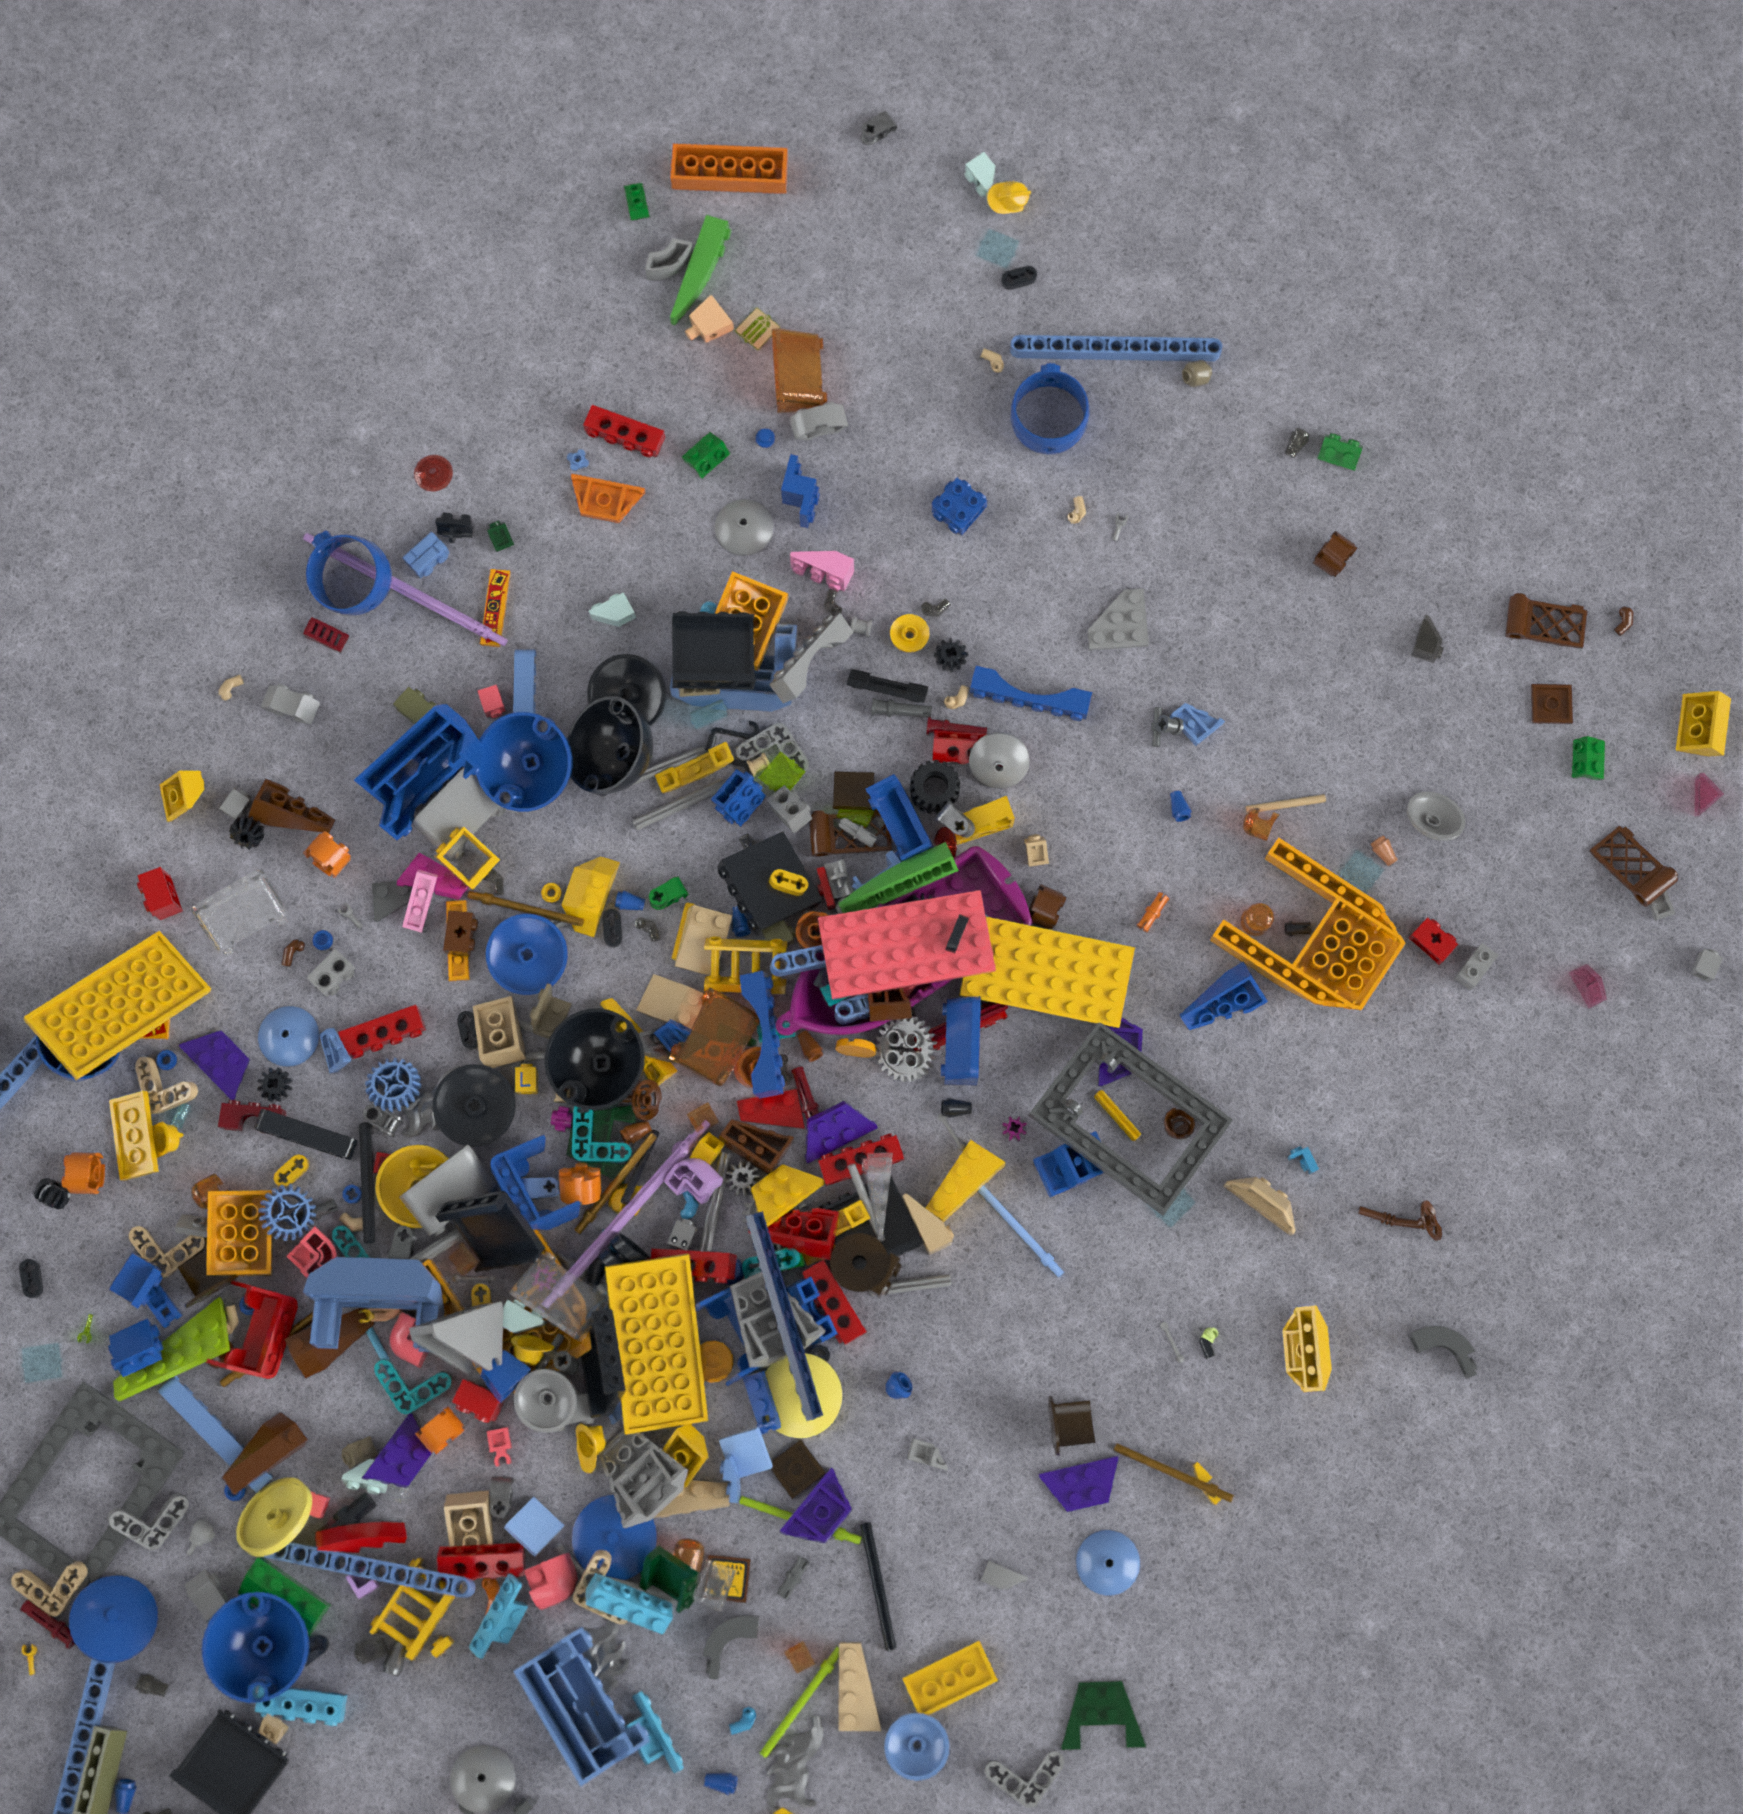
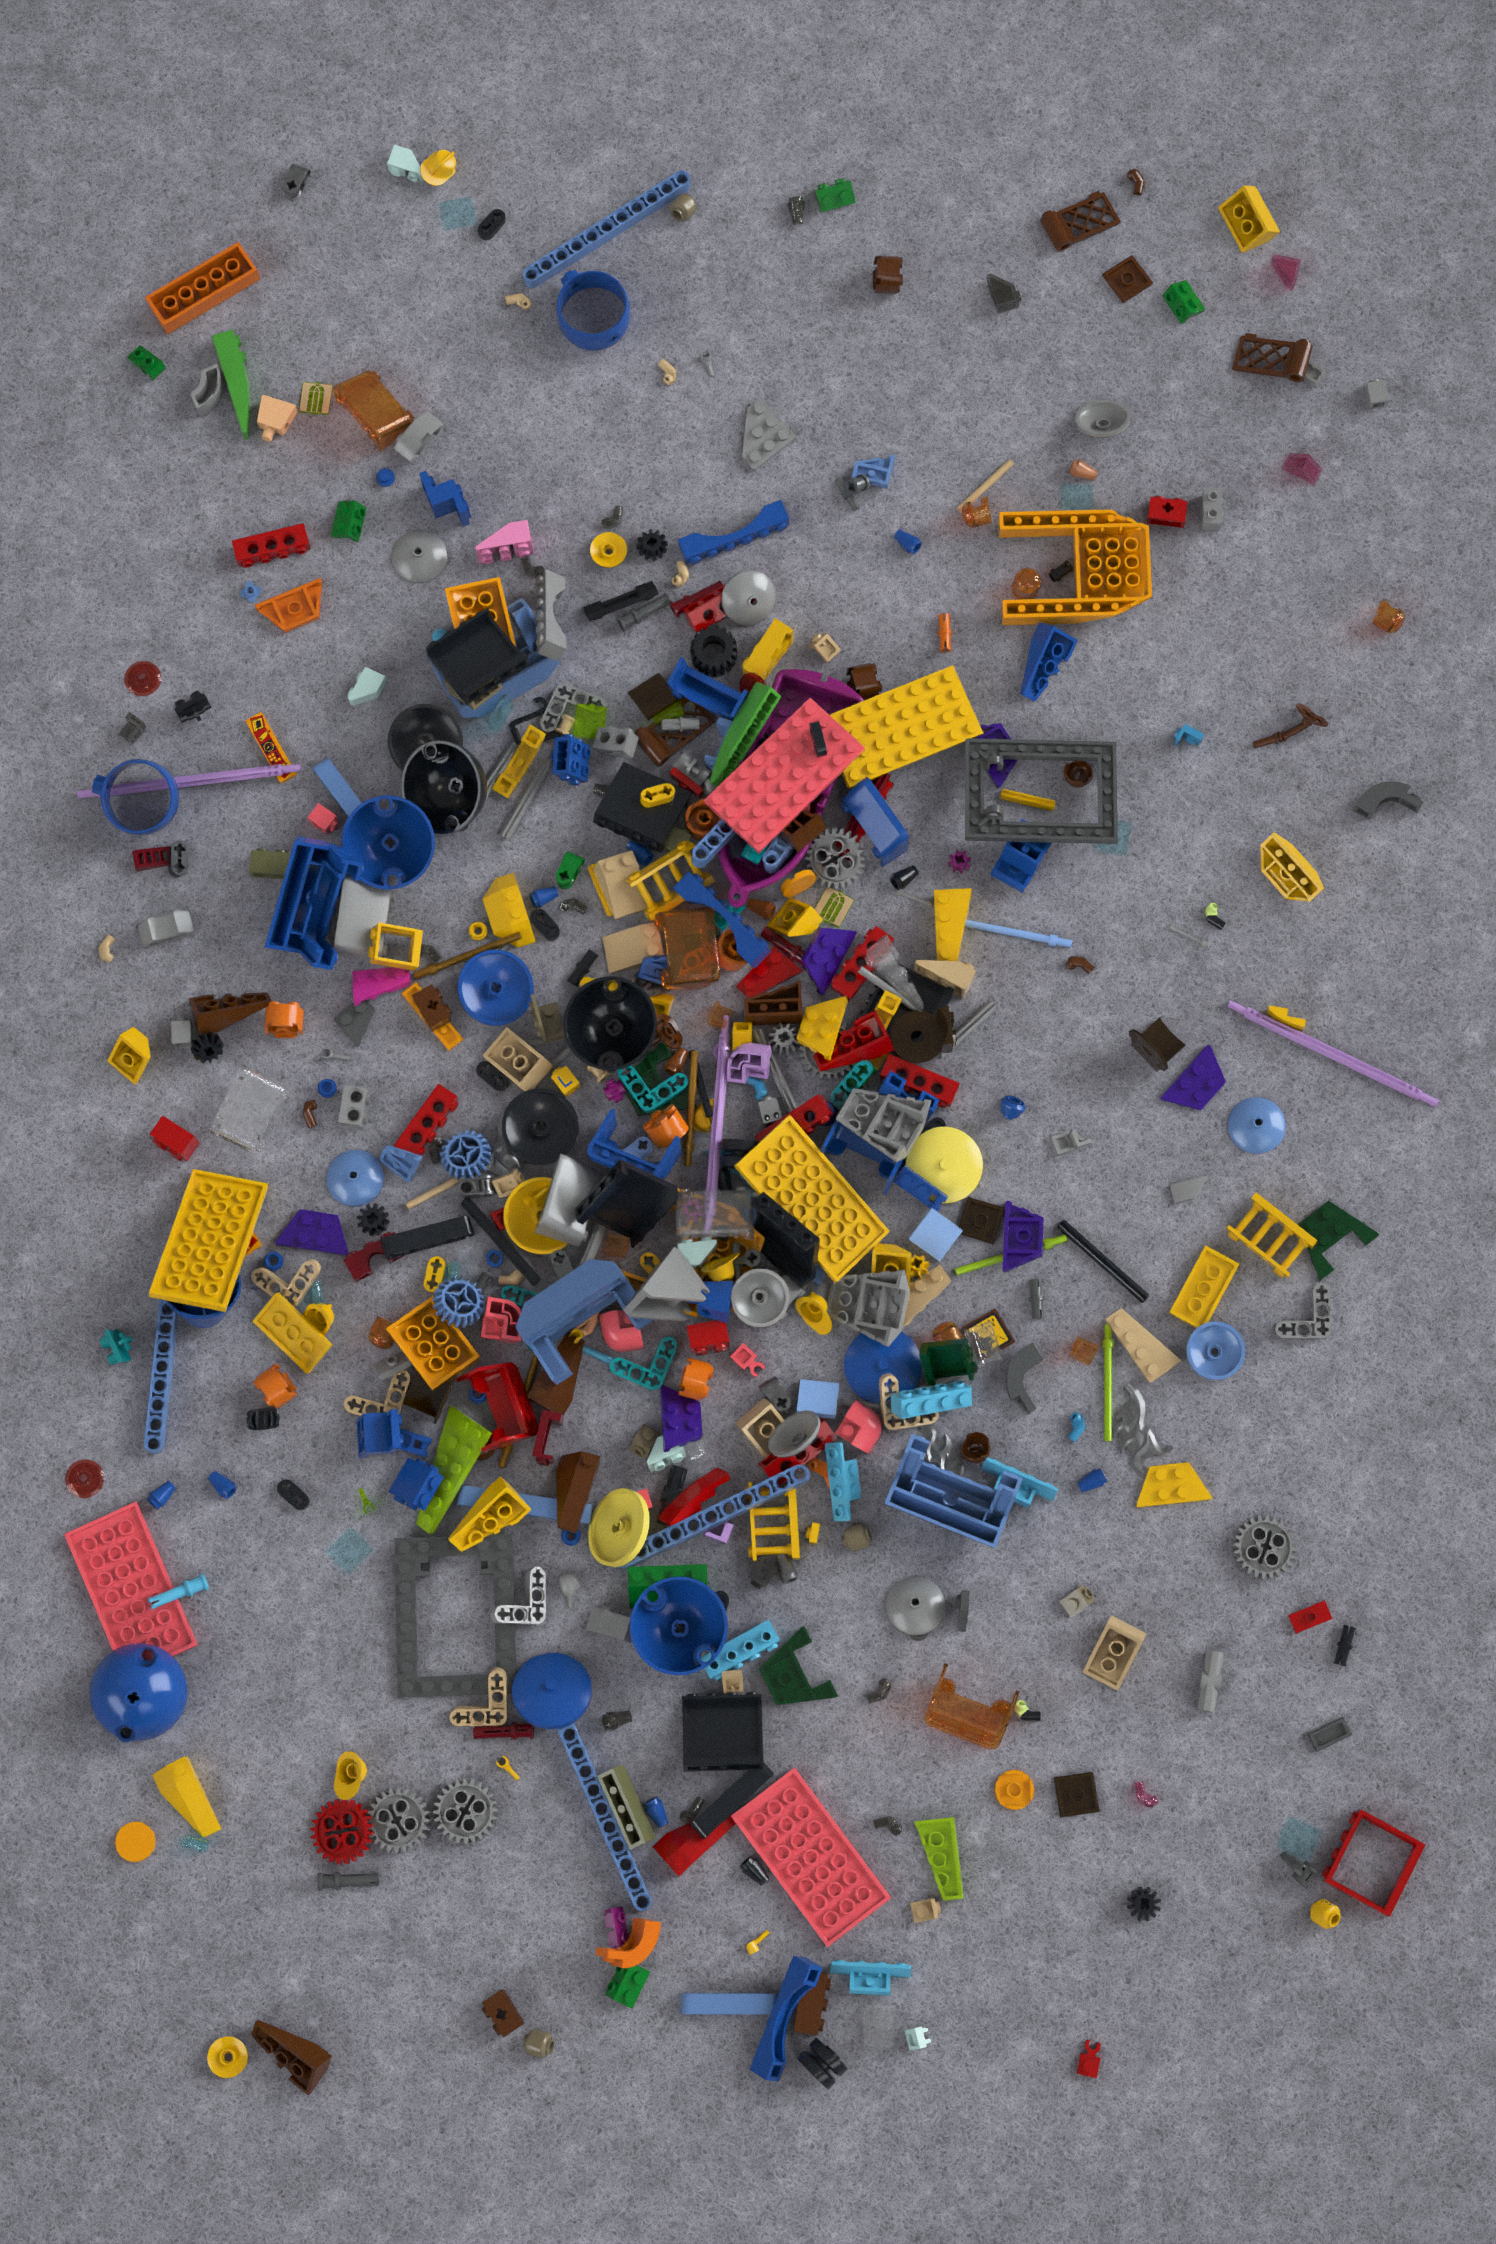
camera: 35 degrees left, 0 degrees up
(183, 1420) = (494, 1510): none -> yellow wedge
(232, 1318) = (471, 1412): tan arm -> none
(272, 1384) = (546, 1420): none -> dark red panel
(308, 1180) = (453, 1270): none -> clear light blue pin
(323, 1761) = (786, 1678): none -> dark green wing
(341, 1096) = (433, 1192): none -> tan bar
(342, 648) = (173, 859): none -> black beam
(373, 1059) = (435, 1148): none -> clear smoke arm
(392, 511) = (133, 729): none -> clear smoke panel
(410, 1135) = (507, 1183): none -> tan bracket
(419, 901) = (382, 1004): bright pink plate -> none
(426, 555) = (186, 743): medium blue brick -> none
(476, 1678) = (857, 1537): none -> dark tan head
(483, 1547) = (794, 1434): none -> light grey dish
(499, 535) = (233, 690): dark green bracket -> none
(616, 989) = (582, 968): none -> black pin
(634, 1682) = (983, 1450): none -> reddish brown hair
(712, 1475) = (918, 1272): none -> yellow gear
(715, 1367) = (868, 1189): light orange tile -> none
(731, 1473) = (935, 1255): medium blue slope -> none
(784, 1315) = (888, 1106): dark blue plate -> none
(830, 1078) = (795, 919): none -> yellow slope
(861, 626) = (567, 569): light grey bush -> none
(874, 1089) = (833, 906): none -> piece
(954, 819) = (747, 663): flat silver piece -> none
(958, 506) = (574, 428): blue brick -> none
(1056, 1296) = (1075, 961): none -> reddish brown arm
(1065, 1683) = (1289, 1228): none -> yellow fence
(1210, 1489) = (1295, 1016): pearl gold bar -> none
(1228, 1552) = (1333, 1053): none -> lavender axle
(1264, 1200) = (1181, 785): tan wedge -> none
(1568, 1180) = (1388, 618): none -> clear orange helmet

